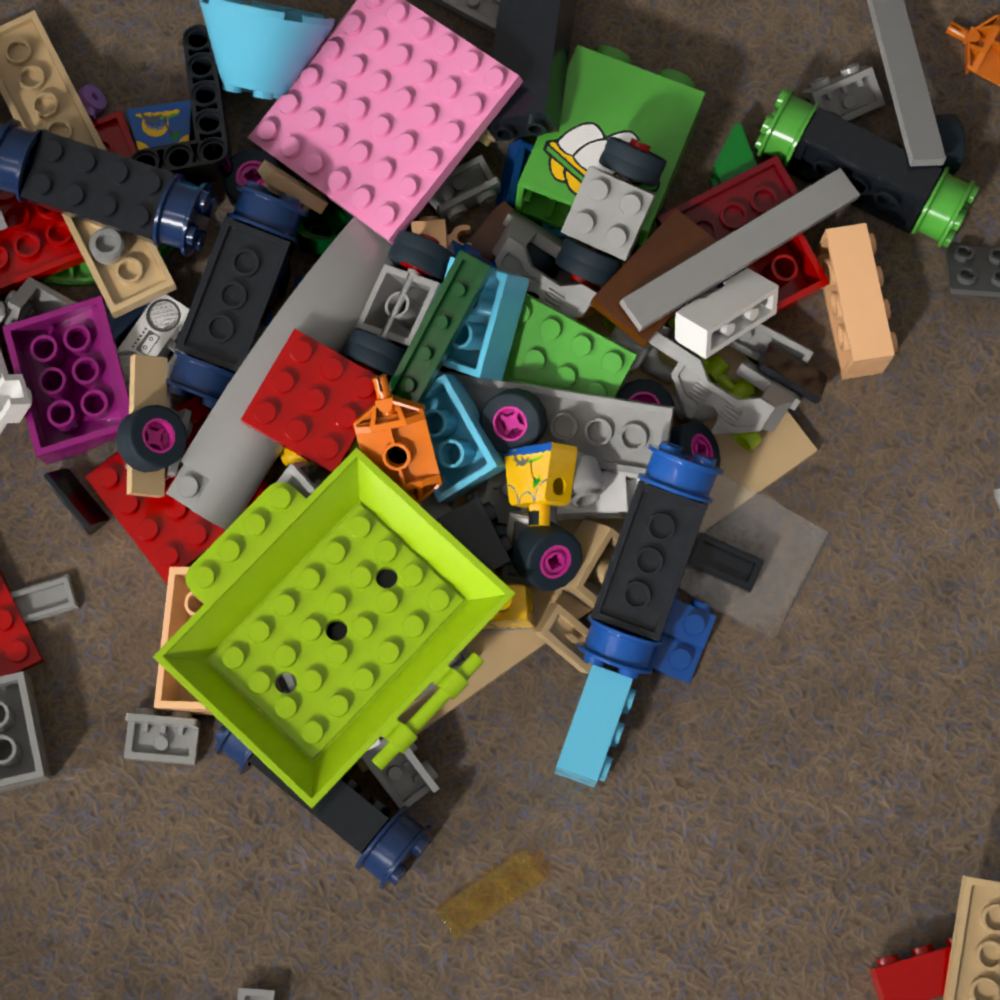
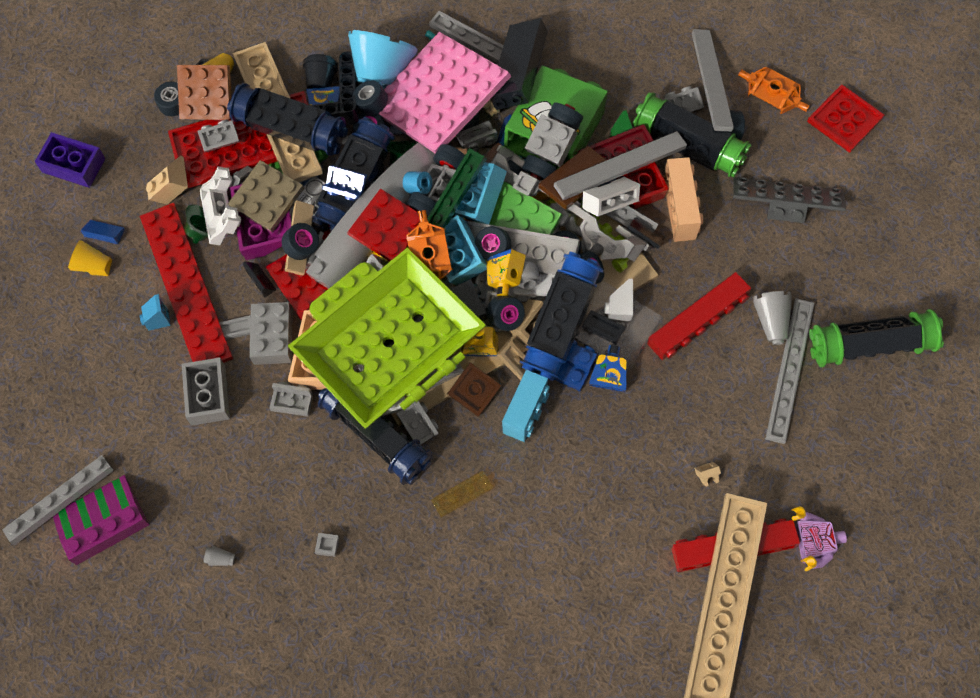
camera: 10 degrees right, 10 degrees down
(75, 344) = (266, 196): none -> dark tan plate
(93, 100) = (290, 85): medium lavender piece -> none
(107, 246) = (288, 149): light grey tile -> none
(110, 611) = (270, 333): none -> light grey brick
(147, 71) = (319, 70): none -> black piece
(224, 318) = (345, 183): none -> bracket
(253, 126) = (370, 98): none -> black wheel
(280, 181) = (398, 136): tan plate -> none
(362, 308) = (417, 182): none -> dark azure piece
(497, 698) = (473, 389): none -> reddish brown plate
(565, 298) = (525, 183): none -> light grey plate
(742, 647) = (610, 371): none -> torso
(755, 516) = (621, 303): none -> white slope
(896, 528) = (698, 316): none -> red brick
(927, 824) = (706, 471): none -> tan tile

